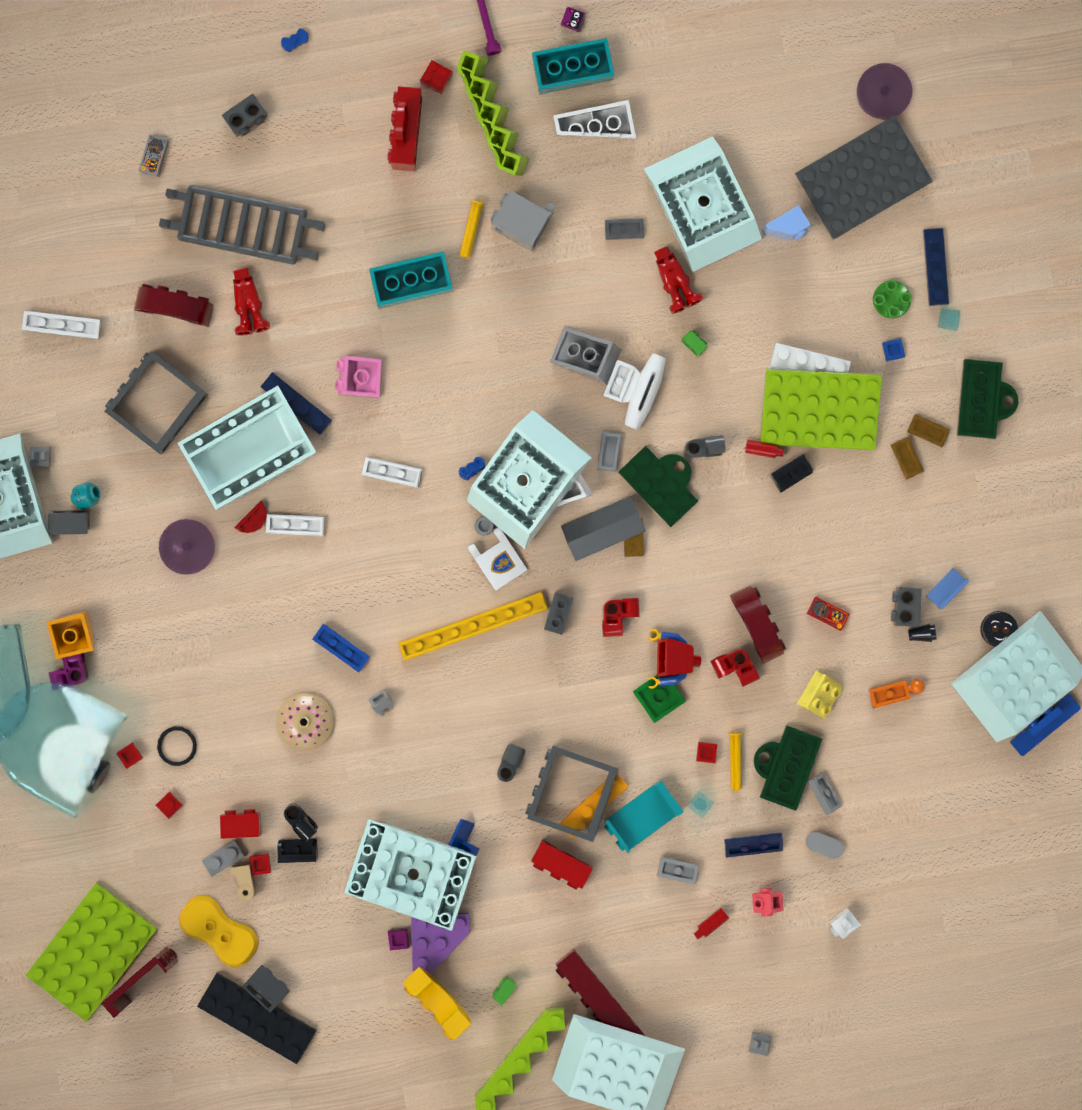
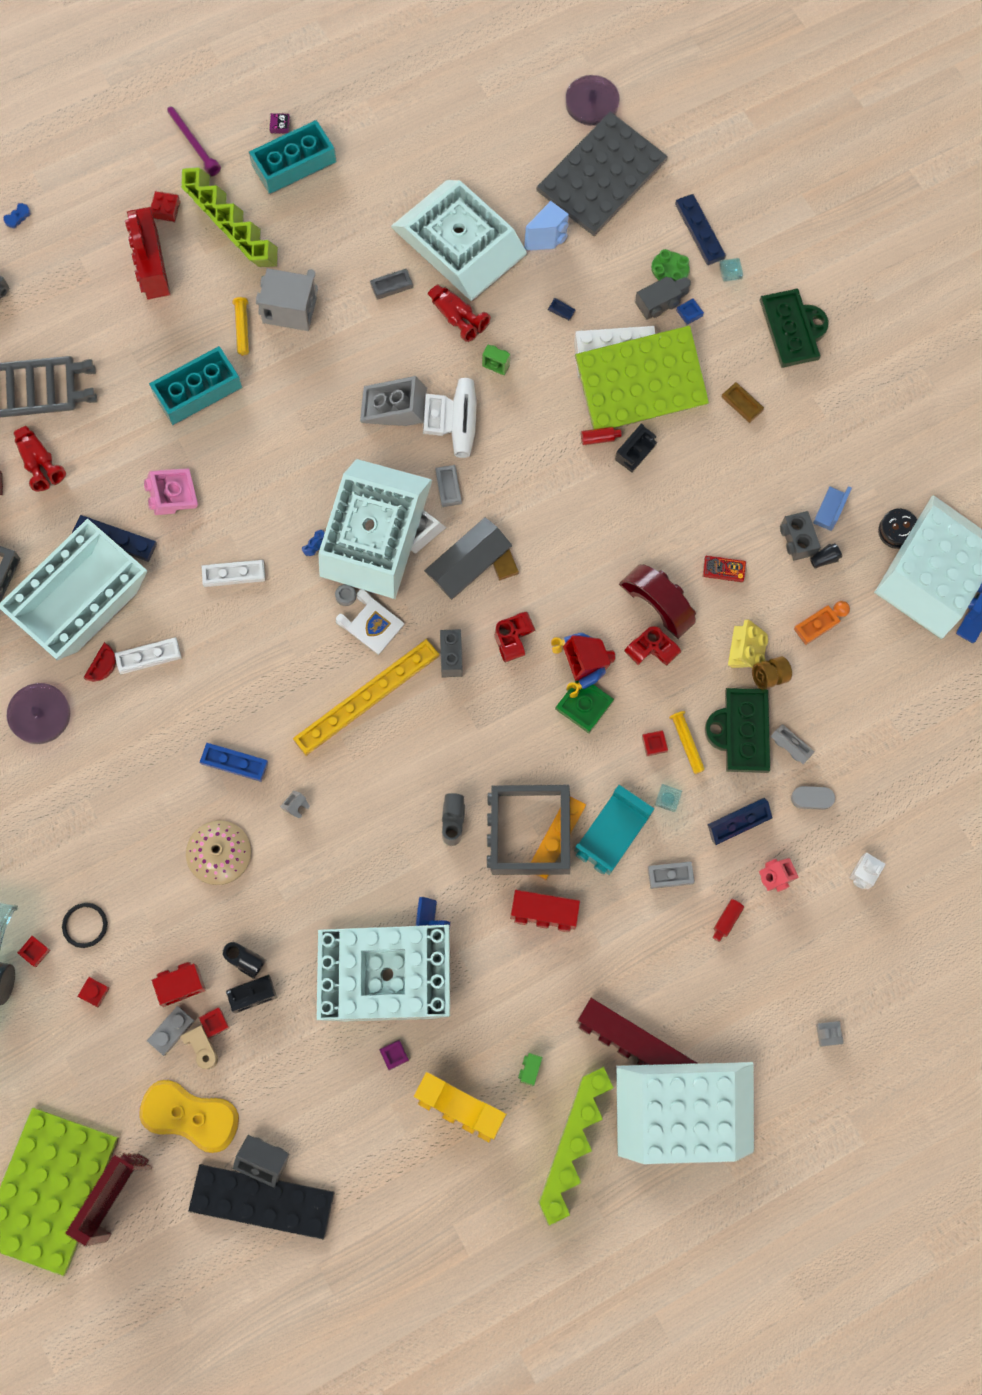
camera: 20 degrees left, 15 degrees down
(433, 943) = (436, 1040): medium lavender plate -> none
(602, 121) = (332, 197): white wedge -> none
(660, 484) = (510, 500): dark green plate -> none
(707, 447) = (544, 449): dark grey piece -> none
(774, 307) = (561, 309): none -> dark blue piece
(831, 726) = (772, 672): none -> pearl gold wheel
(871, 327) = (661, 296): none -> dark grey hinge
(928, 430) = (752, 371): pearl gold tile -> none

